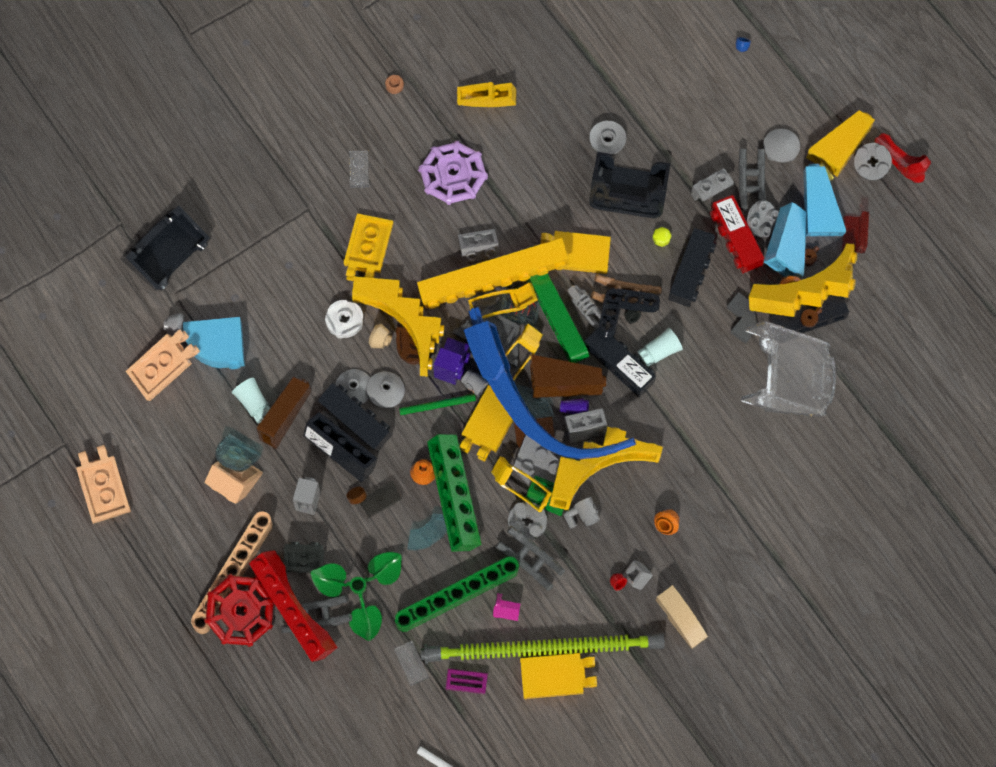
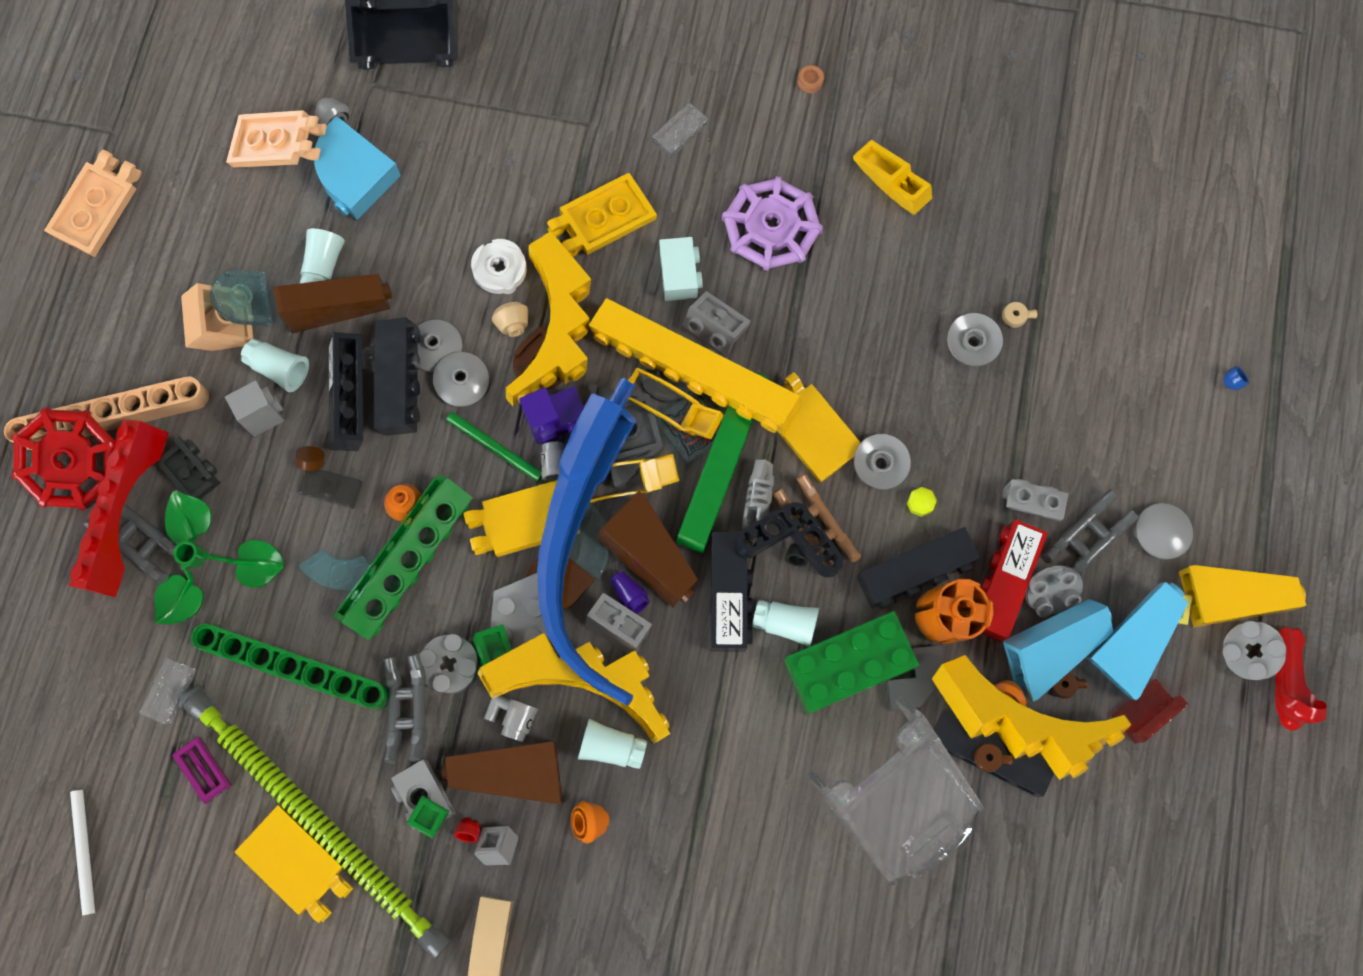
camera: 45 degrees right, 5 degrees up
(288, 469) = (276, 364): none -> light aqua plant
(433, 236) = (679, 268): none -> light aqua brick
(503, 470) = (477, 585): yellow piece -> none
(506, 609) = (318, 734): dark pink tile -> none
(573, 578) = (419, 777): none -> light grey brick
(596, 588) = (428, 817): none -> green tile
(610, 536) = (513, 772): none -> reddish brown slope
(613, 104) = (1021, 312): none -> tan piece
(625, 227) = (891, 452): none -> light grey dish
(628, 189) = (938, 413): black windscreen -> none
(641, 480) = (611, 746): none -> light aqua plant
(707, 338) = (850, 663): none -> green piece
(729, 270) = (954, 612): none -> orange cylinder

